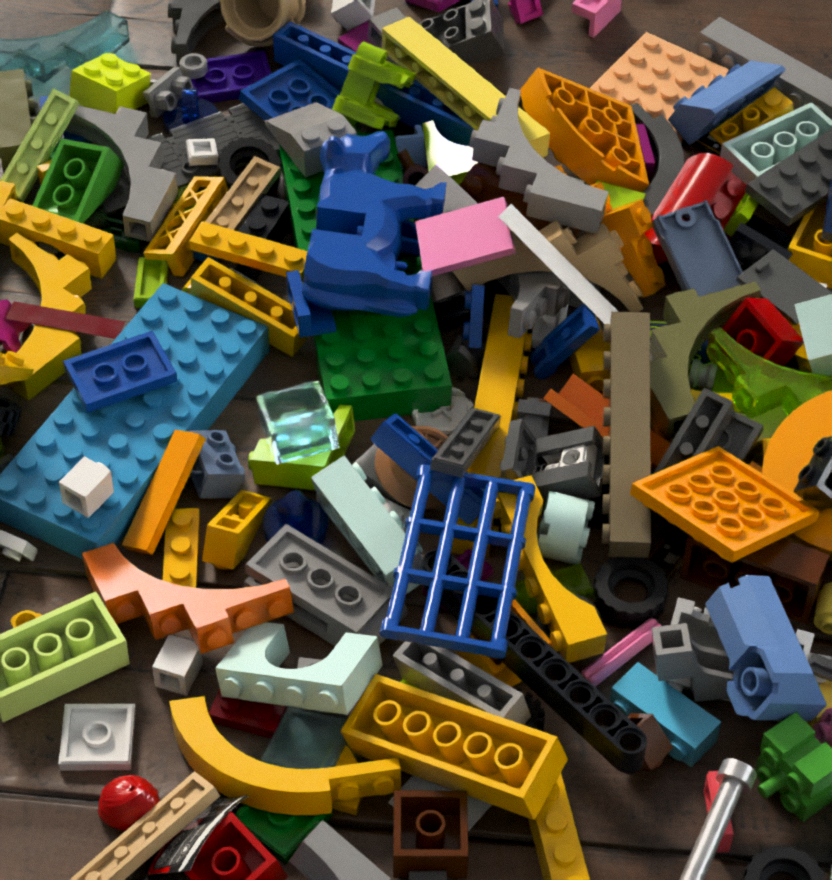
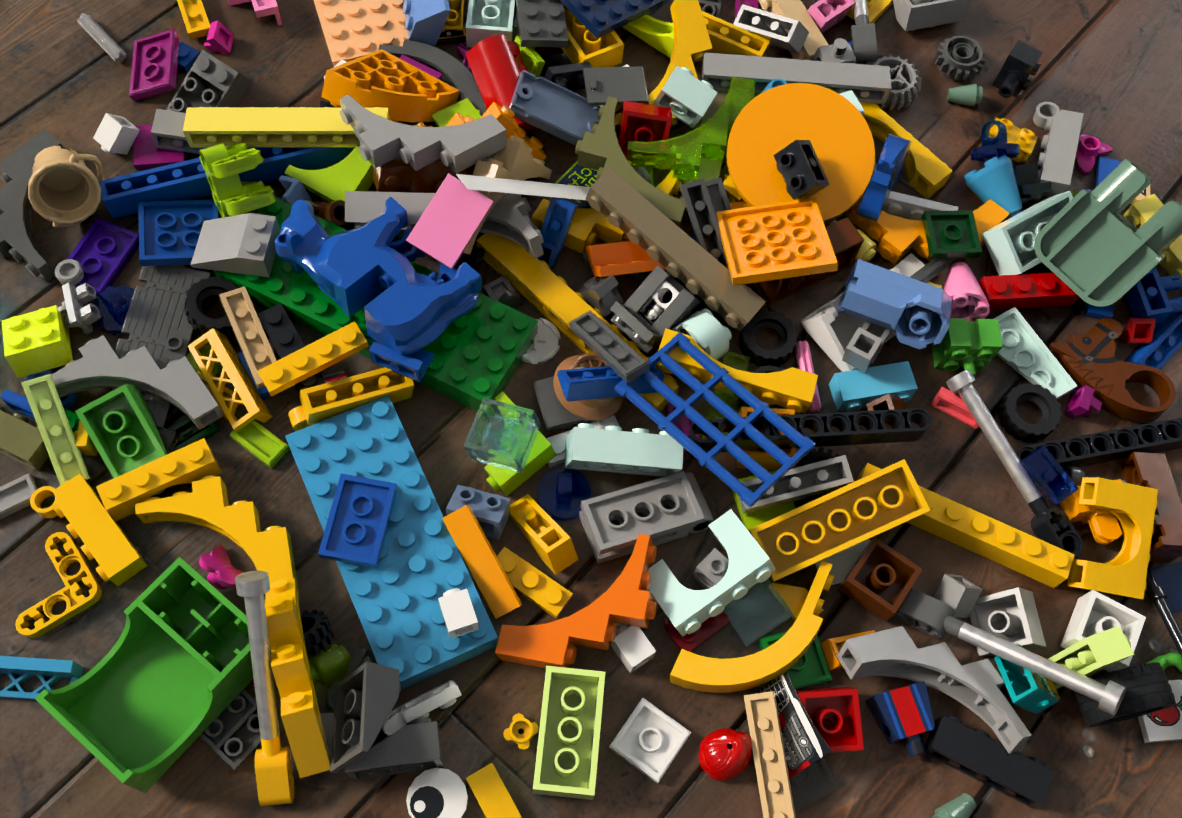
camera: 60 degrees left, 15 degrees up
(65, 320) = (258, 526): dark red sticker -> none
(202, 152) = (169, 325): white tile -> none
(475, 301) = (491, 260): blue plate -> none

